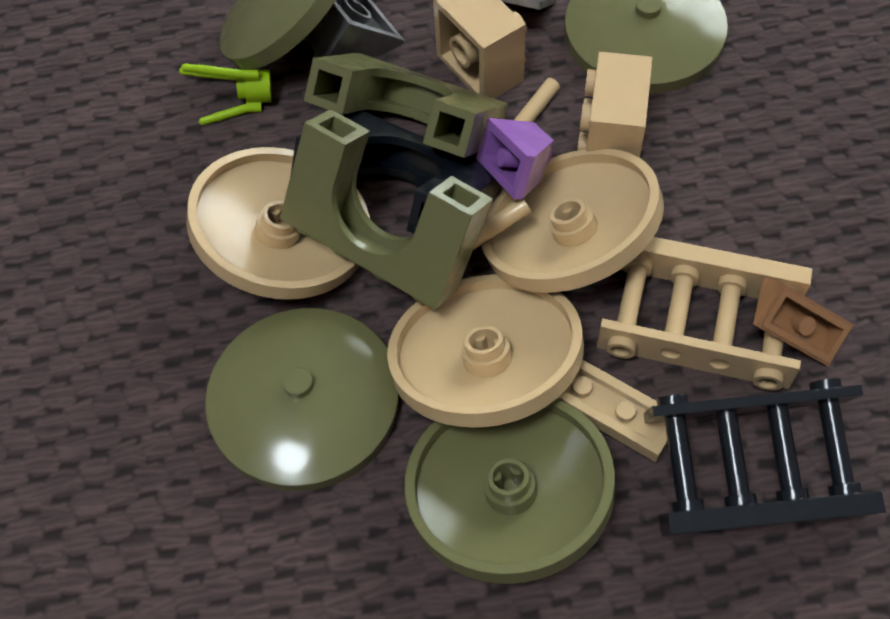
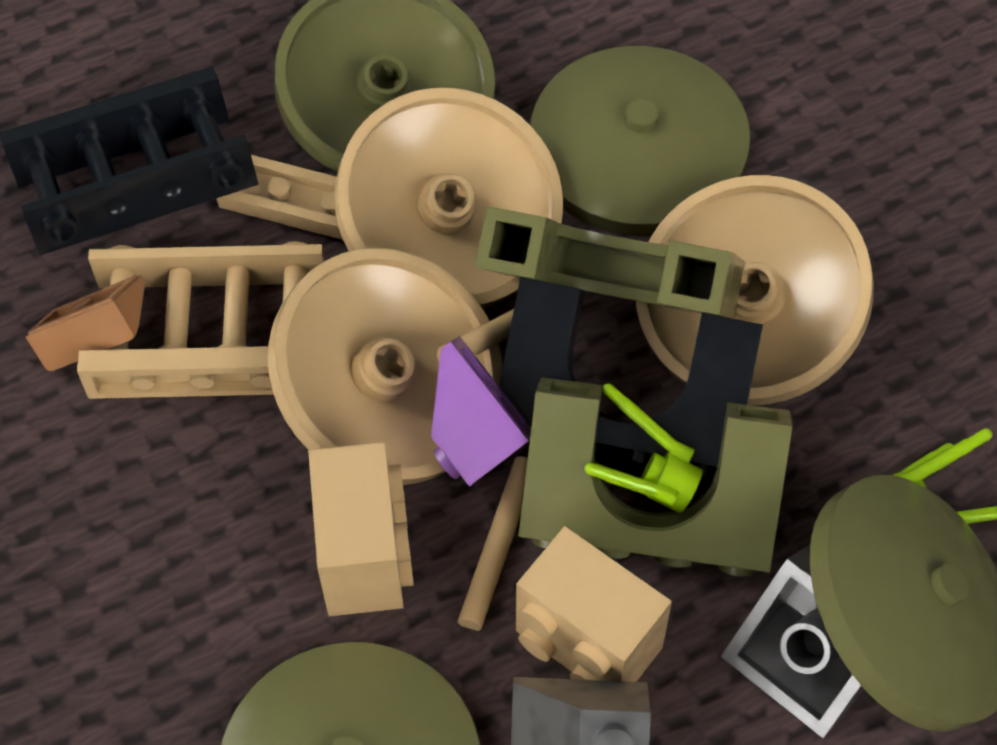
camera: 160 degrees right, 0 degrees up
(402, 108) = (664, 479): none -> lime plant

